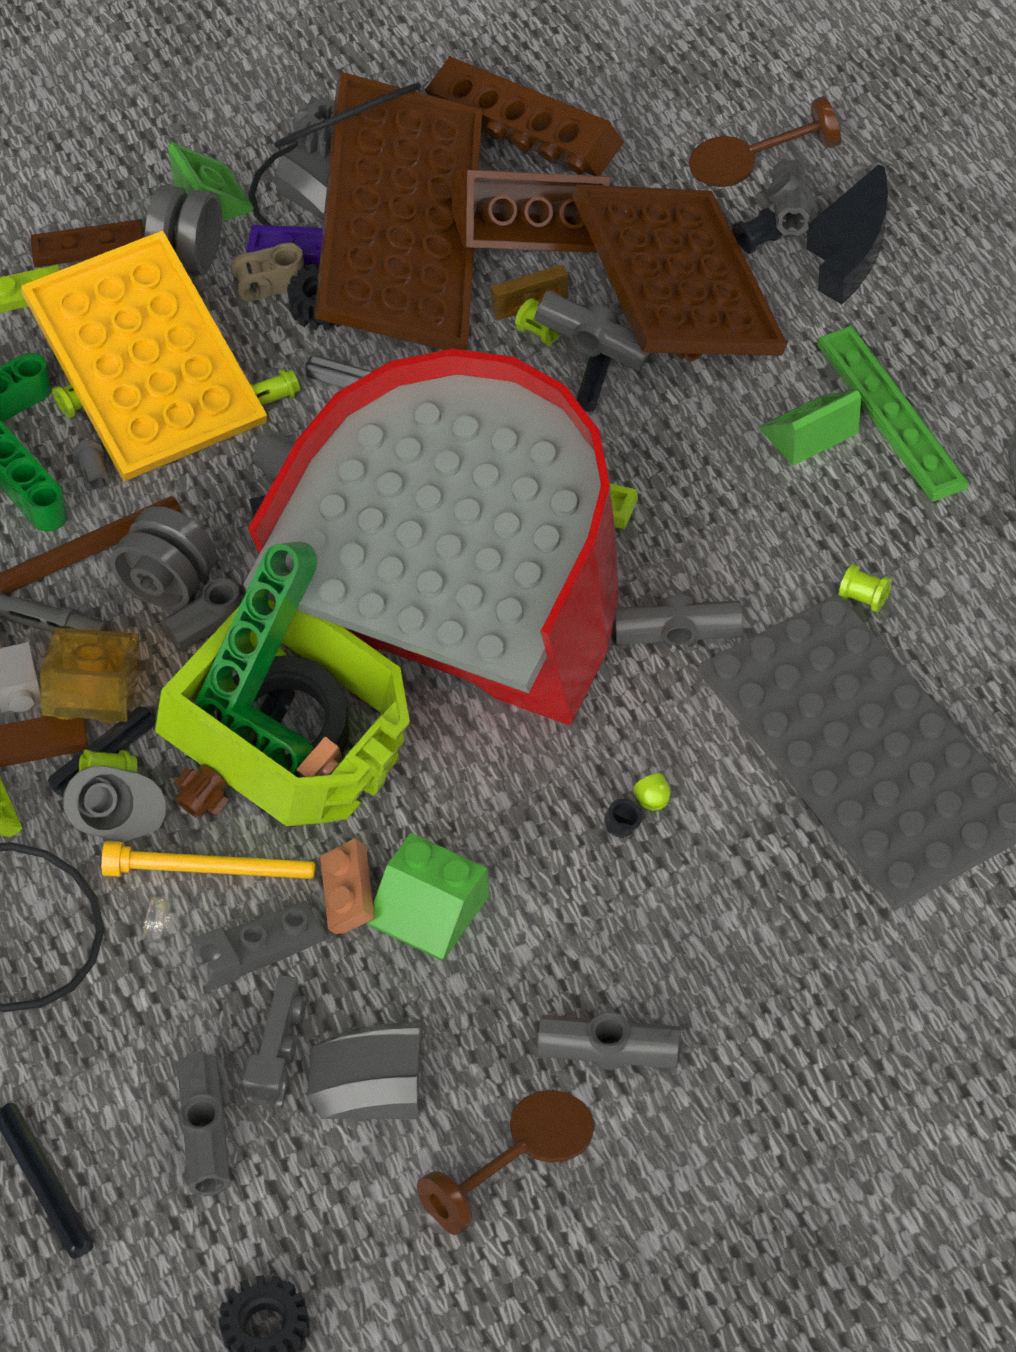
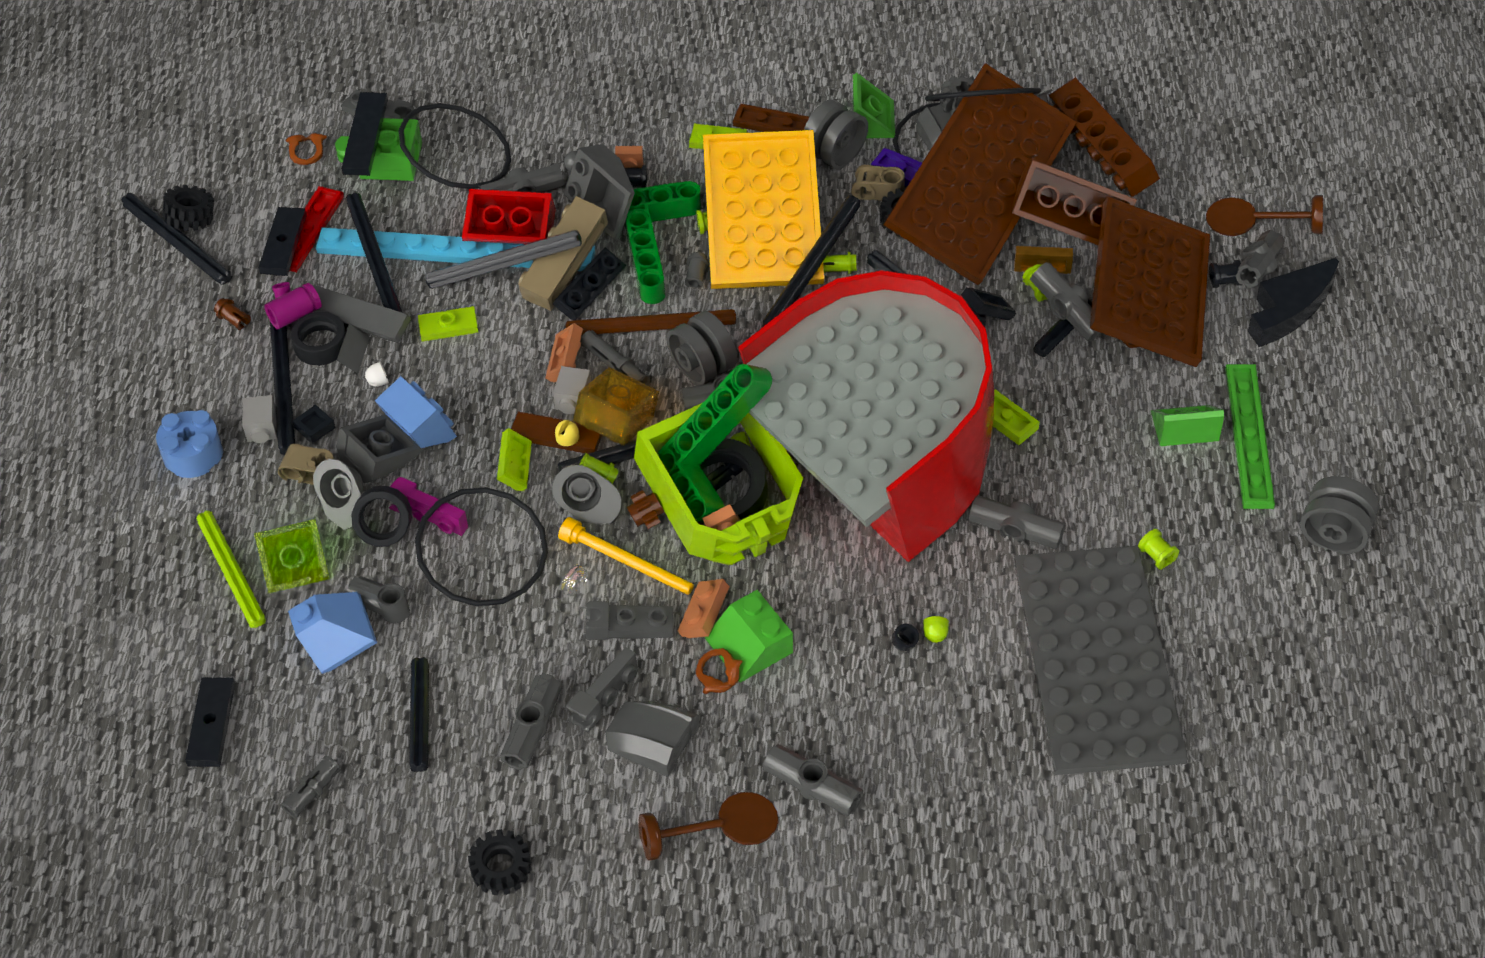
camera: 25 degrees right, 0 degrees up
(48, 735) = (570, 435): none -> light yellow hinge
(243, 401) = (815, 257): none -> black axle
(411, 977) = (716, 685): none -> dark orange piece

